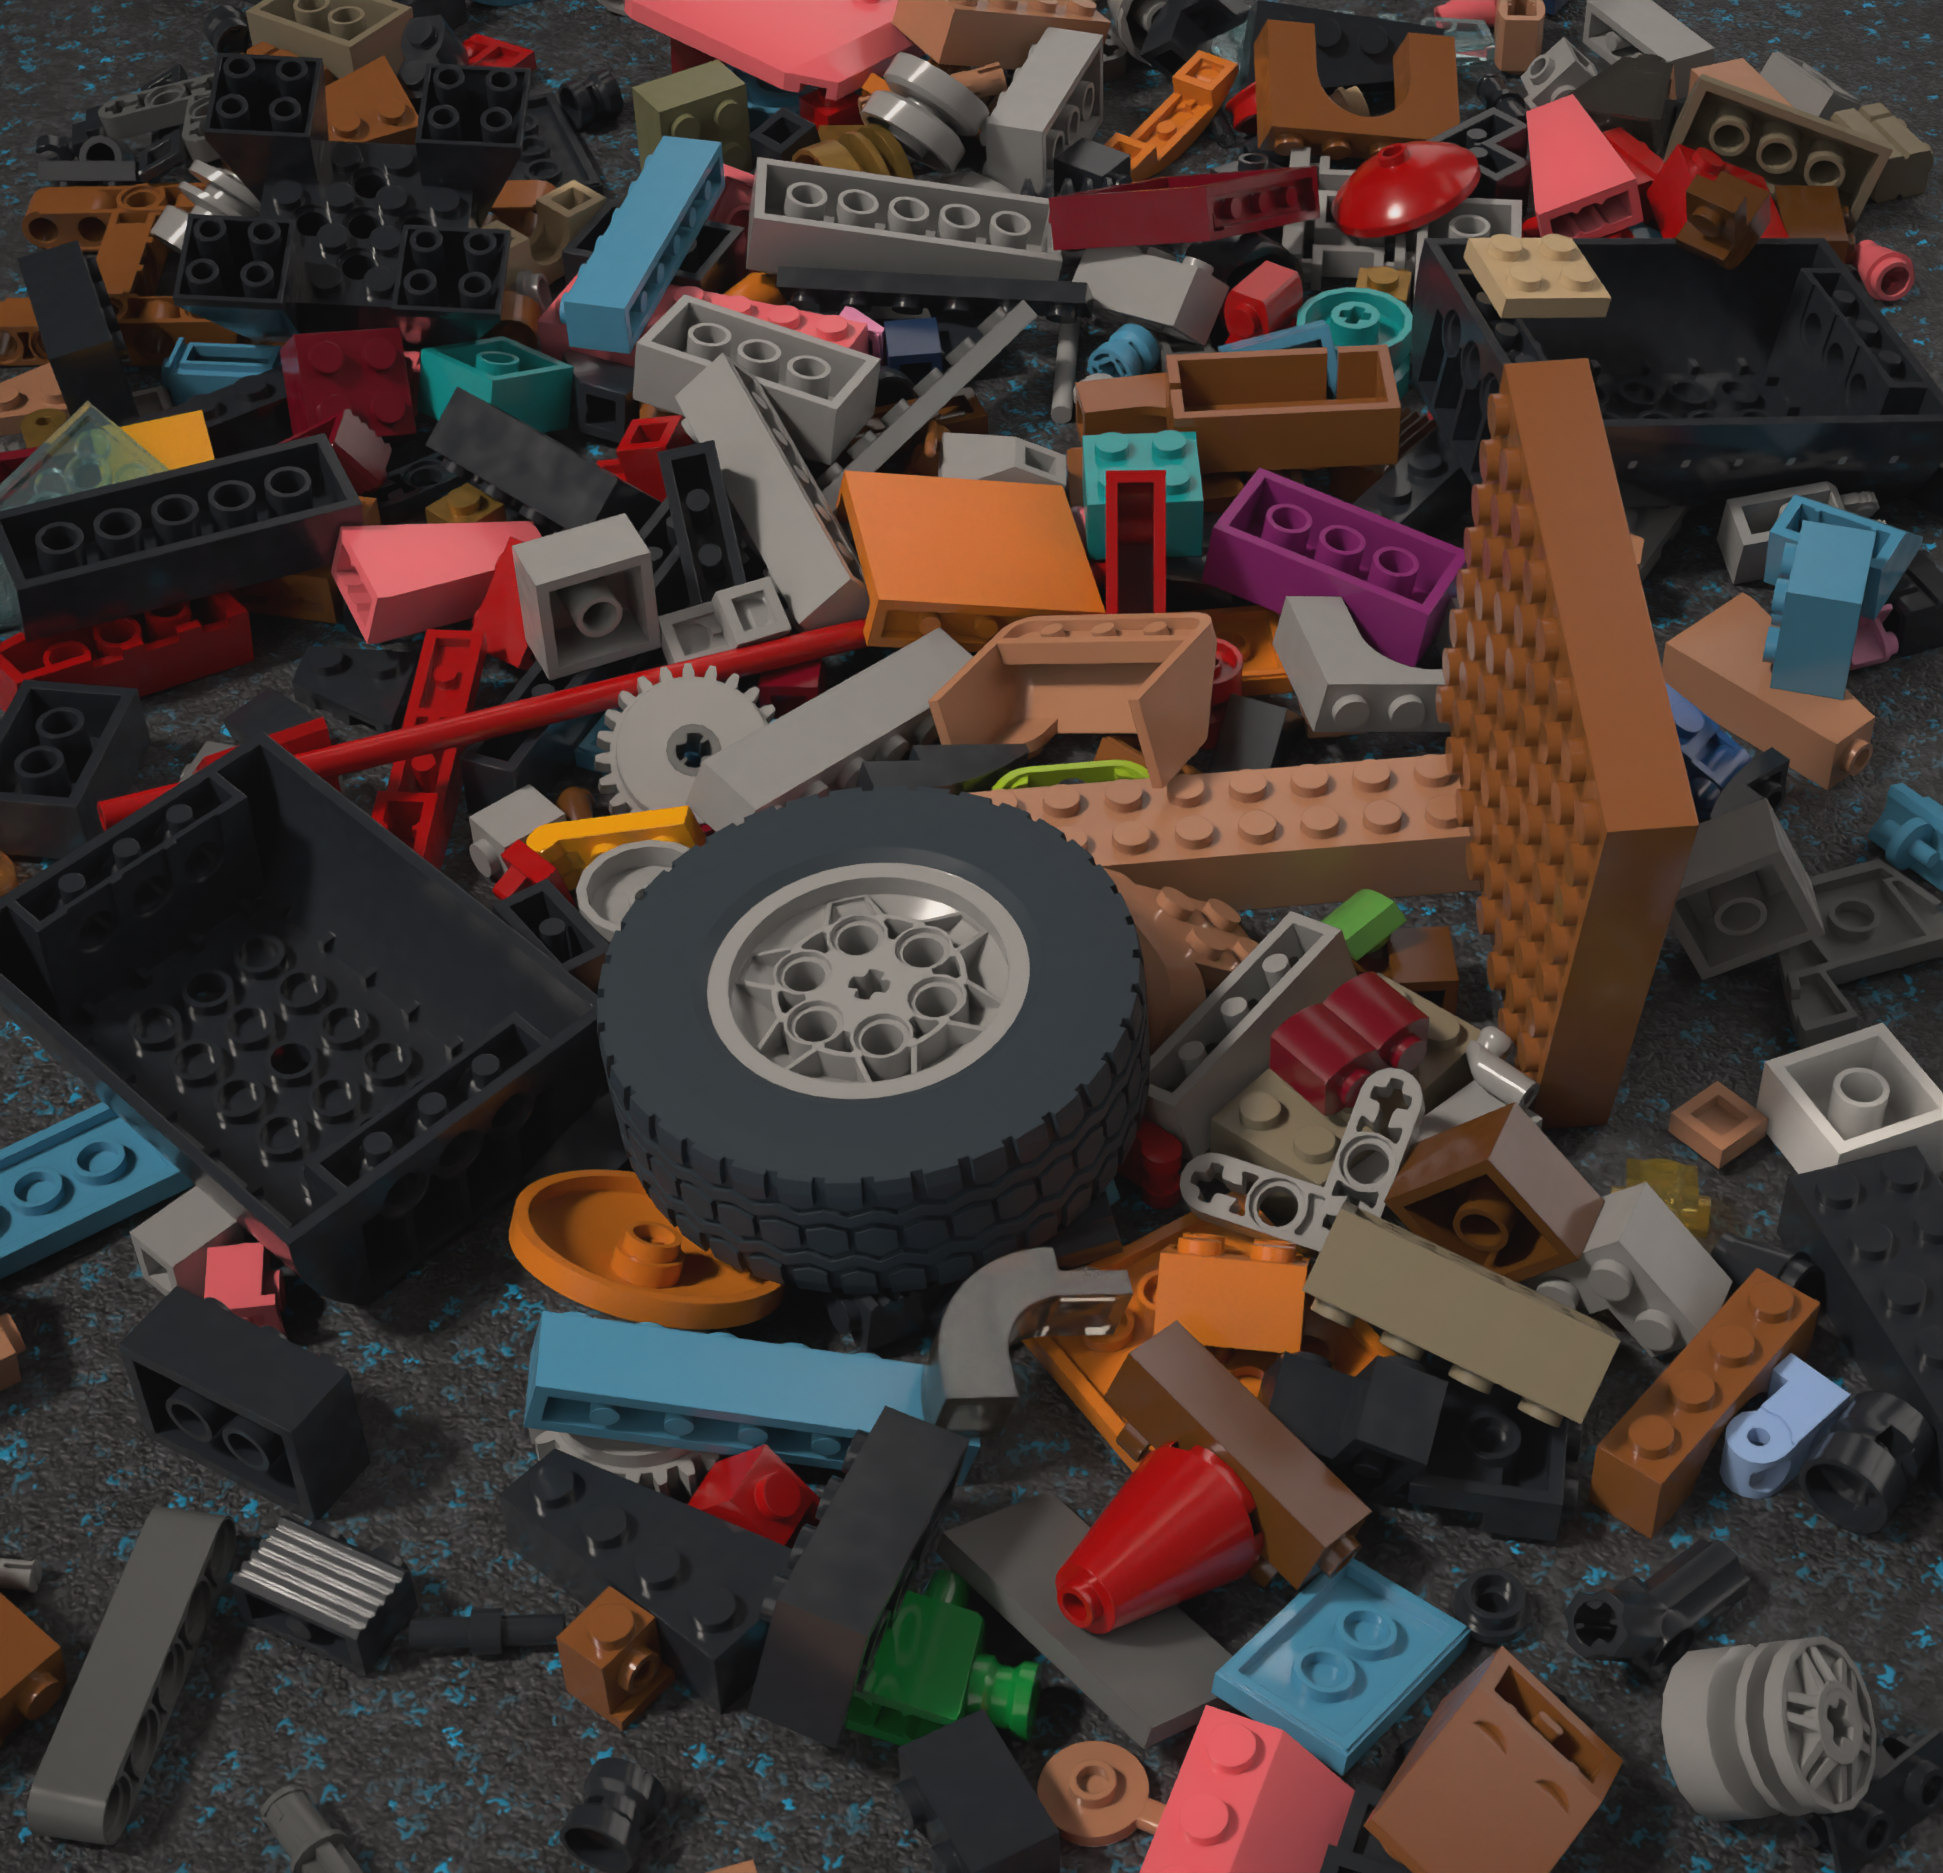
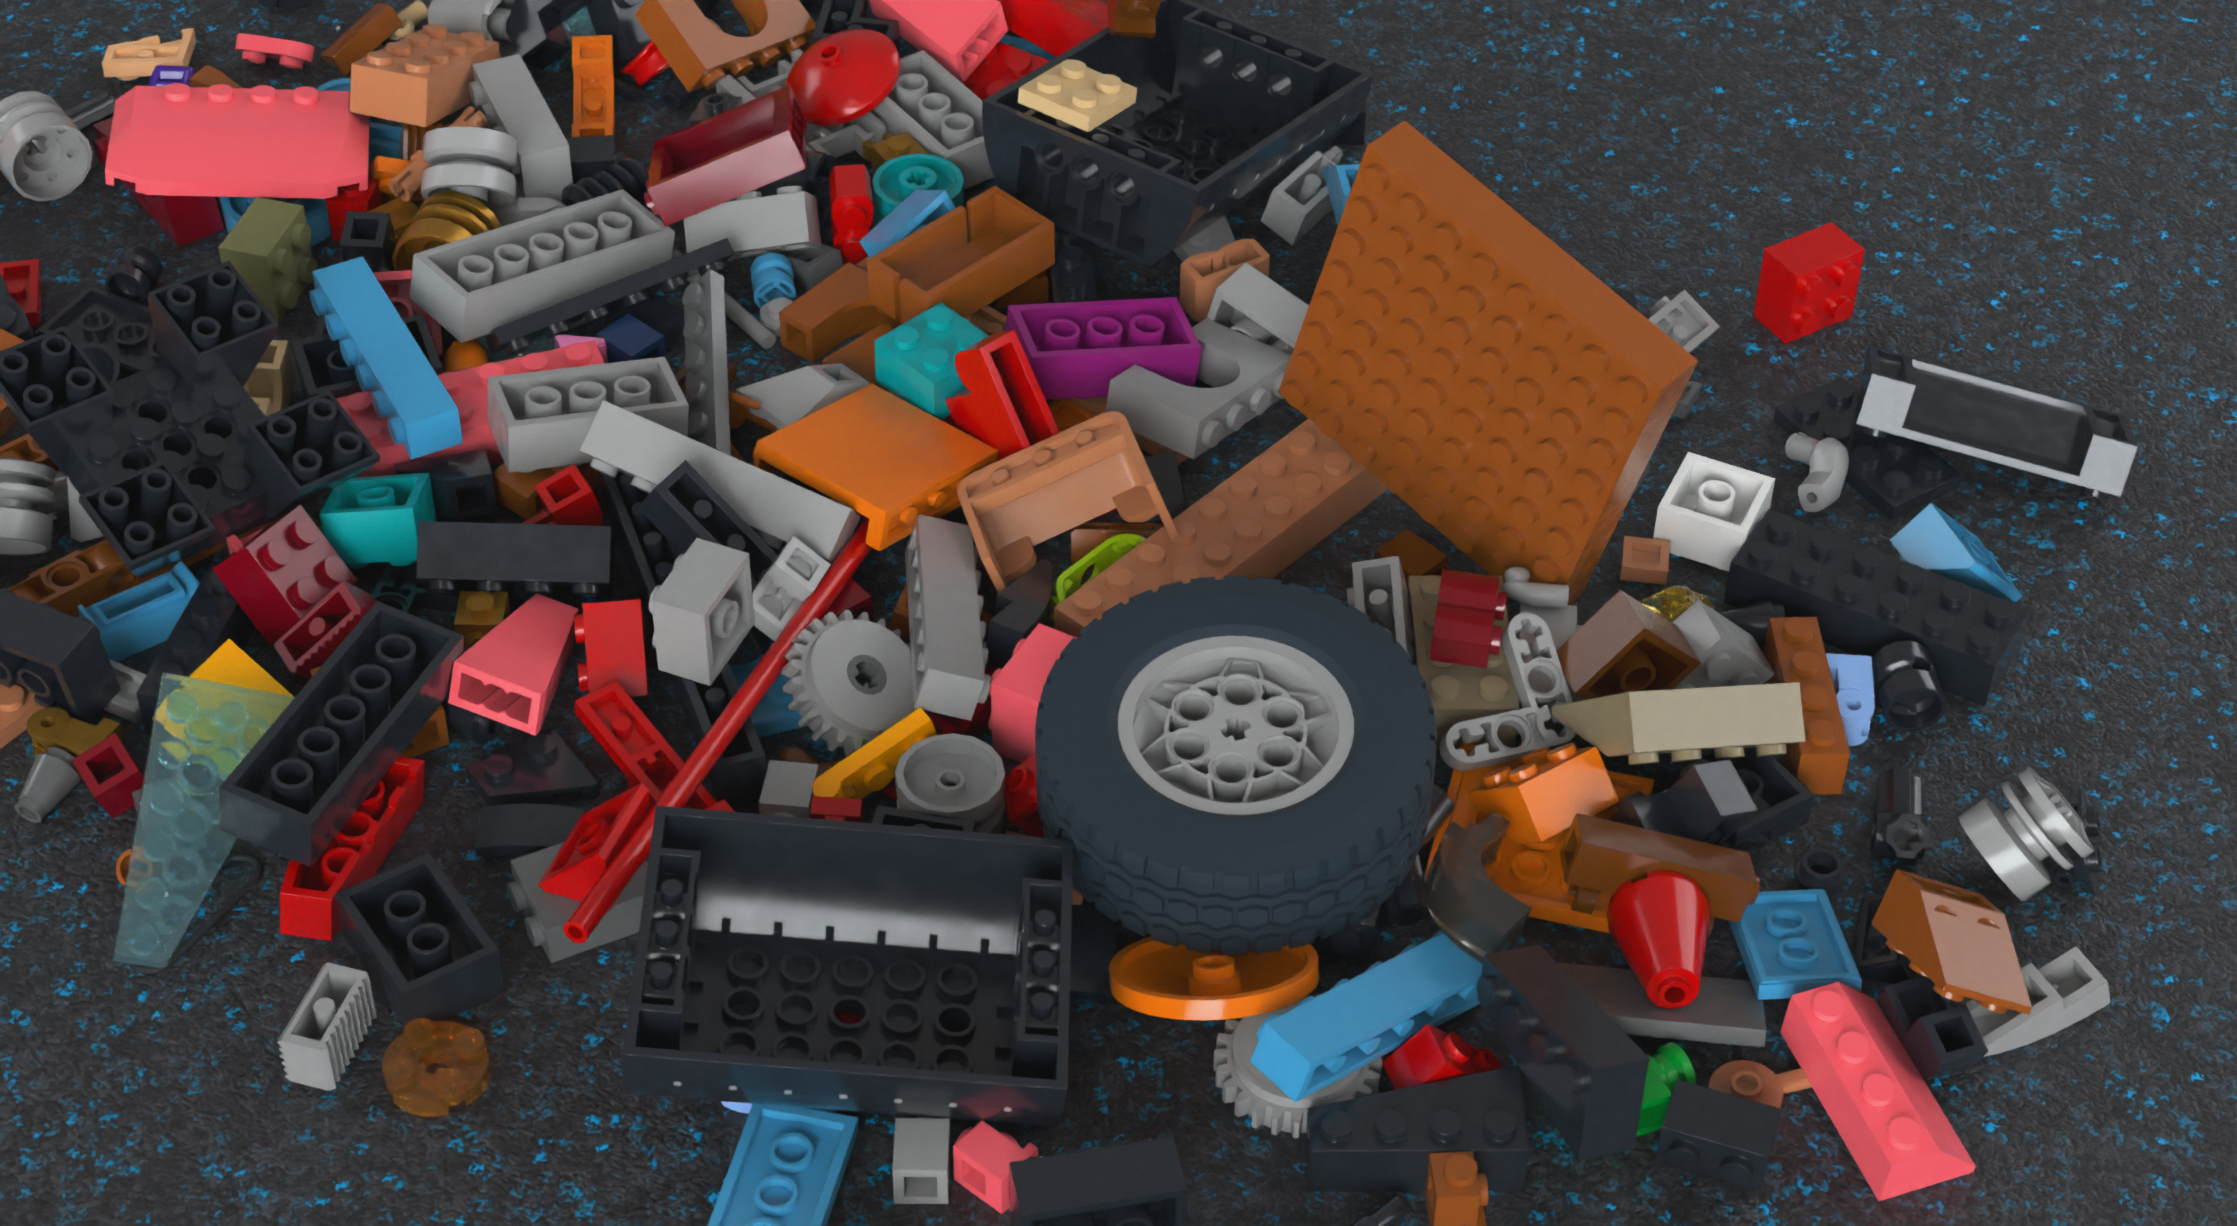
camera: 45 degrees left, 0 degrees up
(1366, 921) = (1340, 551): bright green slope -> none

